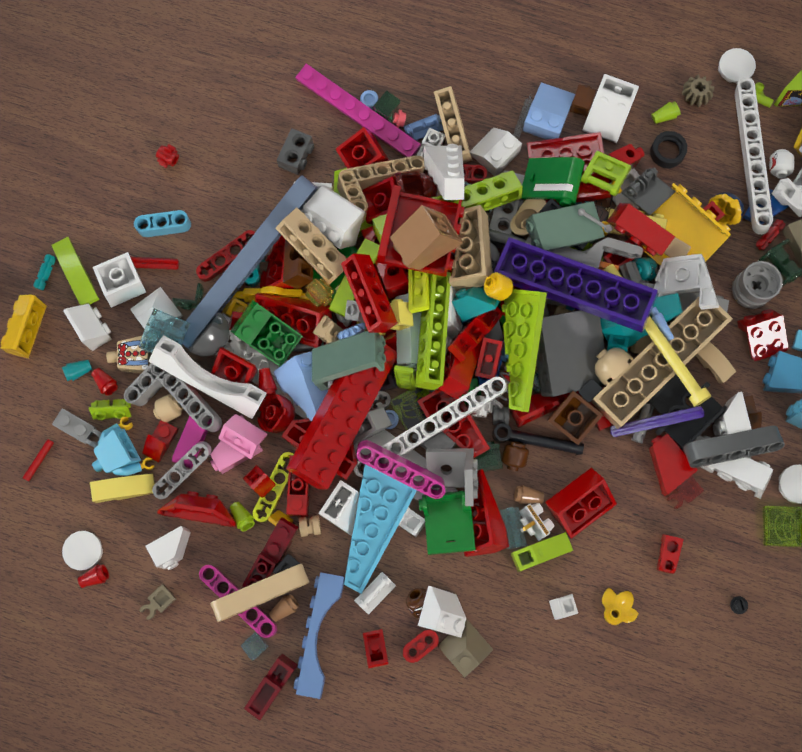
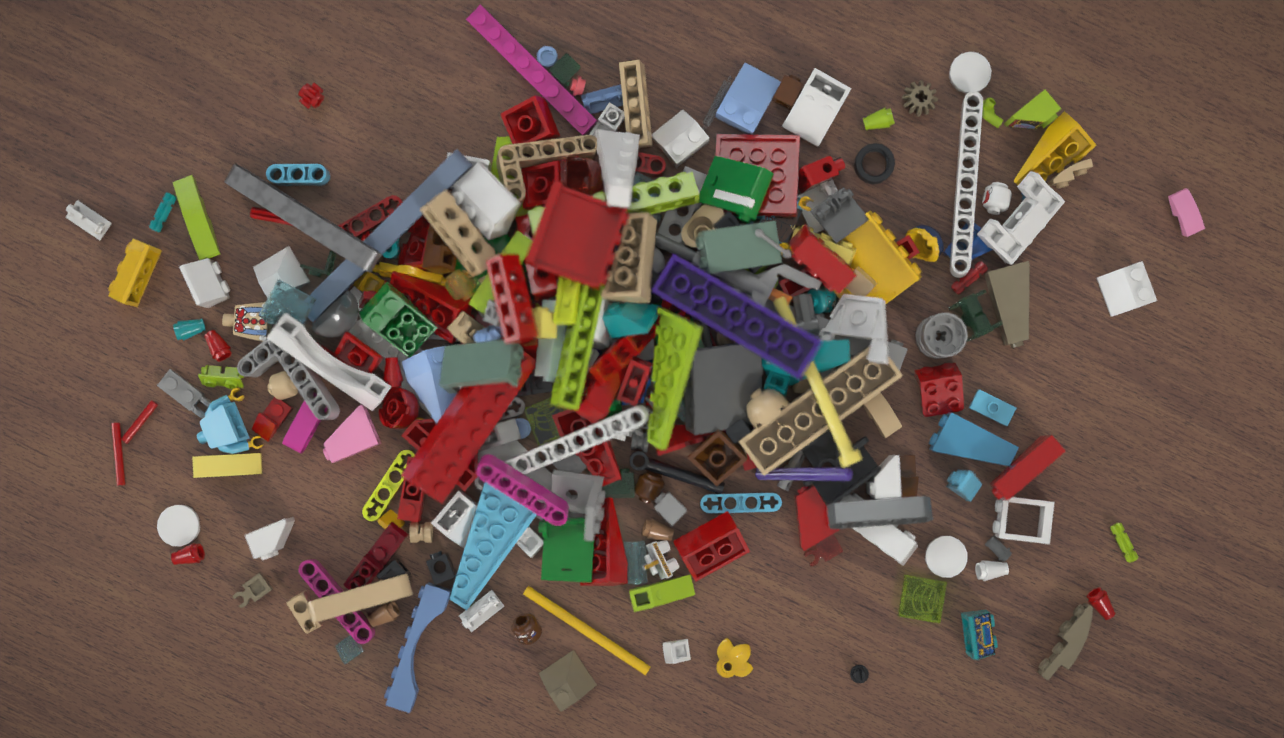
camera: 10 degrees right, 10 degrees up
(20, 492) = (118, 454): none -> red bar
(119, 279) = (243, 234): white slope -> none
(171, 256) = (303, 218): none -> flat silver beam
(181, 470) = (290, 454): light grey beam -> none
(200, 509) = (307, 499): red wedge -> none
(206, 615) = (300, 610): none -> tan leg
(242, 435) = (360, 428): bright pink panel -> none
(242, 517) = (350, 513): lime cone -> none
(259, 481) = (371, 478): red slope -> none
(271, 686) = (361, 692): dark red slope -> none
(291, 151) = (450, 107): dark grey brick -> none
(338, 562) = (439, 577): none -> black brick
(375, 648) = (473, 669): red slope -> none
(405, 377) = (542, 388): lime slope -> none
(421, 646) = (521, 671): red plate -> none
(425, 238) = (580, 248): medium nougat slope -> none
(442, 612) = (547, 643): white slope -> none
(477, 598) = (586, 630): none -> yellow piece
(498, 286) = (653, 309): yellow head -> none
(537, 470) = (669, 507): none -> light grey brick
(601, 461) = (740, 502): none -> medium azure beam
(609, 168) = (797, 183): lime plate -> none
(659, 320) = (822, 366): light blue animal -> none
(669, 553) = (795, 611): red leg -> none

